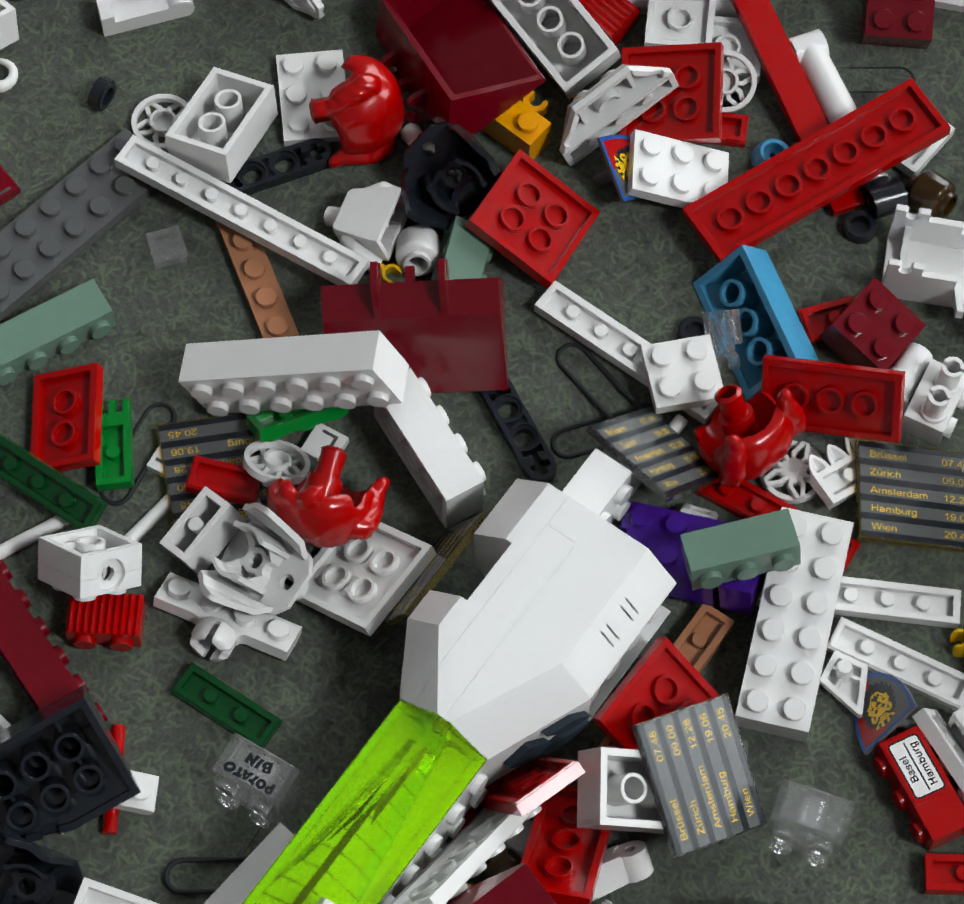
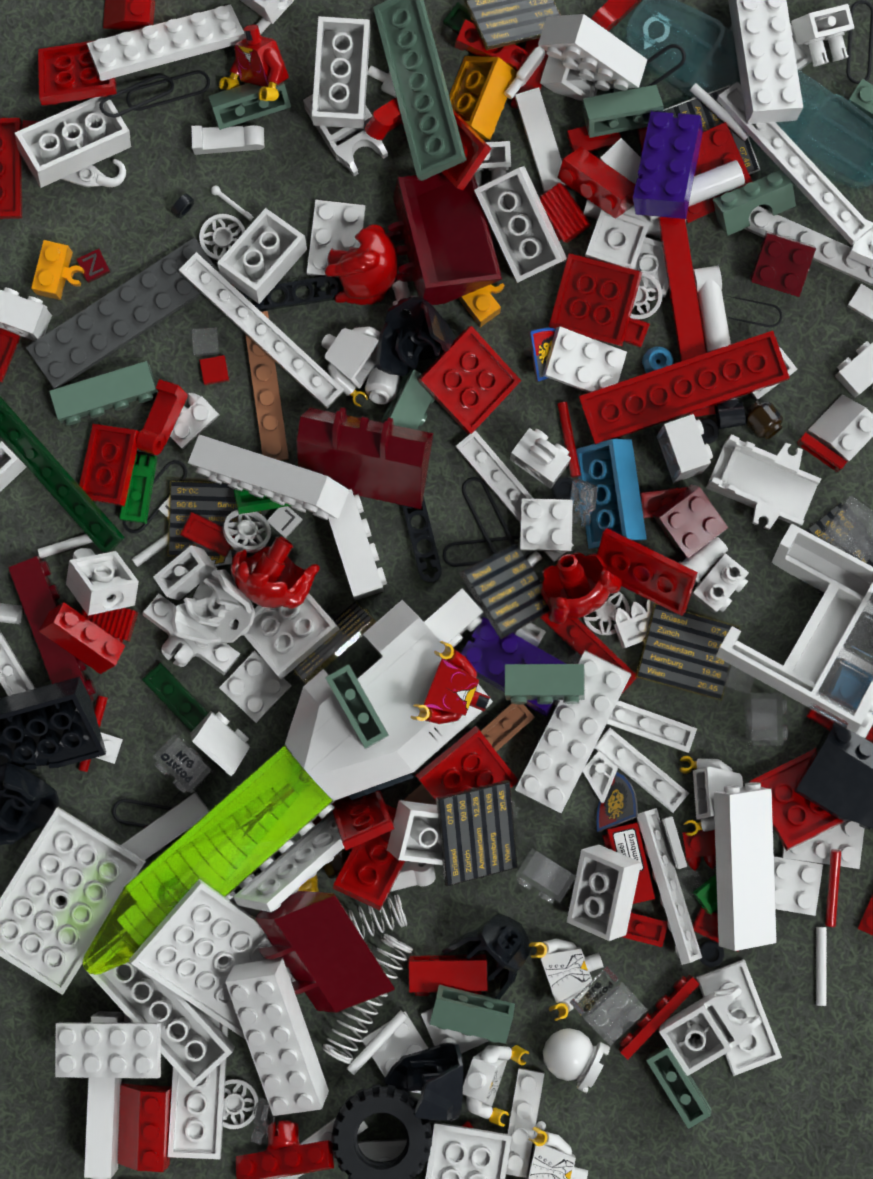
camera: 15 degrees right, 20 degrees up
(75, 641) = (82, 638): none -> red brick
(128, 345) = (161, 417): none -> red leg
(141, 71) = (215, 190): none -> white hinge
(166, 349) = (193, 420): none -> white plate
(186, 280) = (214, 370): none -> red tile
(301, 741) = (220, 741): none -> white slope
(333, 667) = (255, 687): none -> white plate
(494, 604) = (357, 706): none -> sand green brick
(611, 106) = (546, 301): white wedge -> none
(619, 556) = (451, 689): none -> red torso
(652, 290) = (540, 457): none -> white brick
(682, 271) = (569, 439): none -> red bar
(839, 237) = (684, 448): none -> white brick
(899, 823) = (603, 892): none -> white brick

